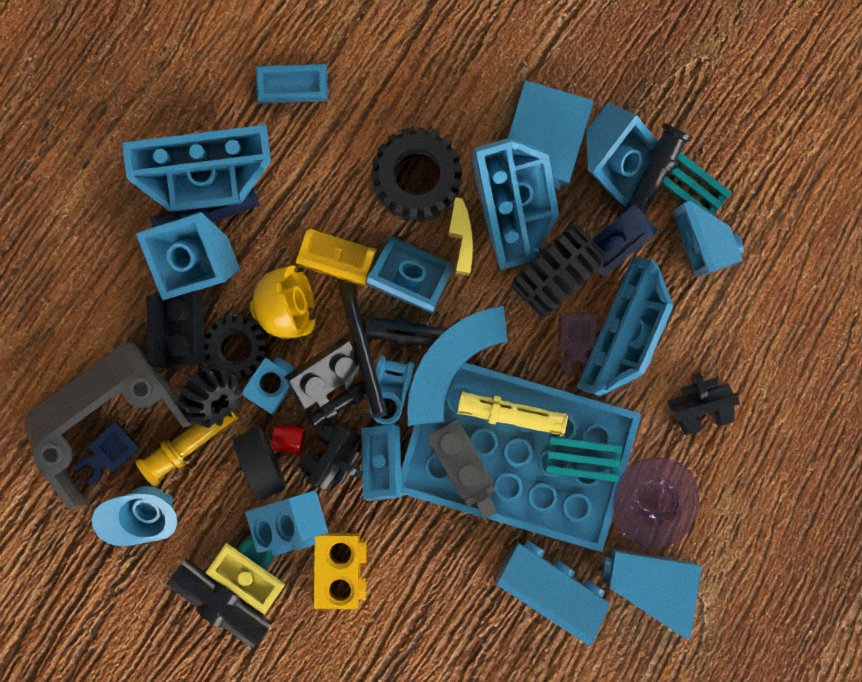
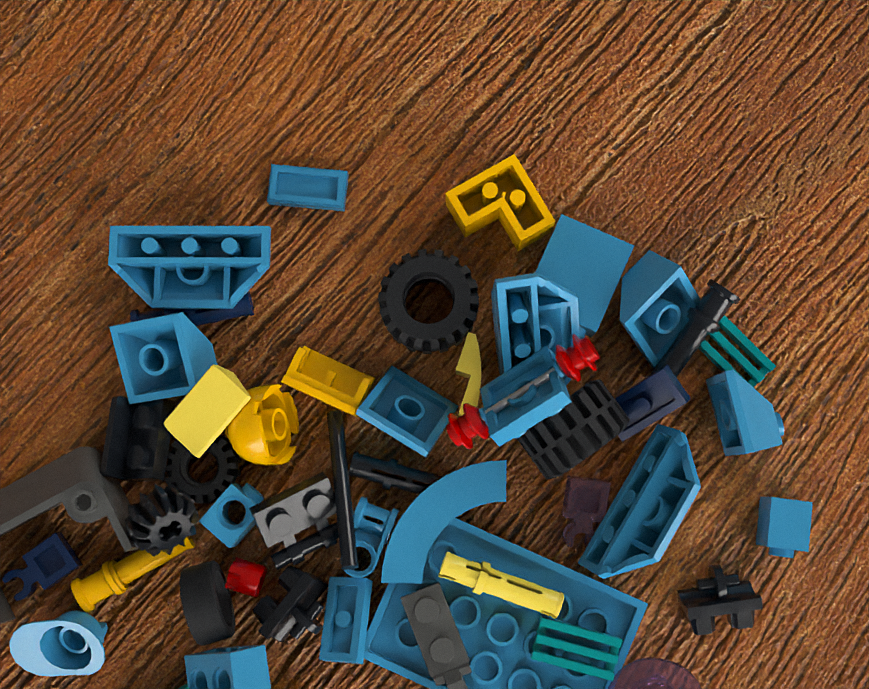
camera: 15 degrees right, 5 degrees down
(235, 295) = (207, 409): none -> light yellow slope
(473, 69) = (505, 195): none -> yellow brick
(511, 246) = (523, 395): none -> dark azure plate
(752, 331) = (784, 525): none -> dark azure brick

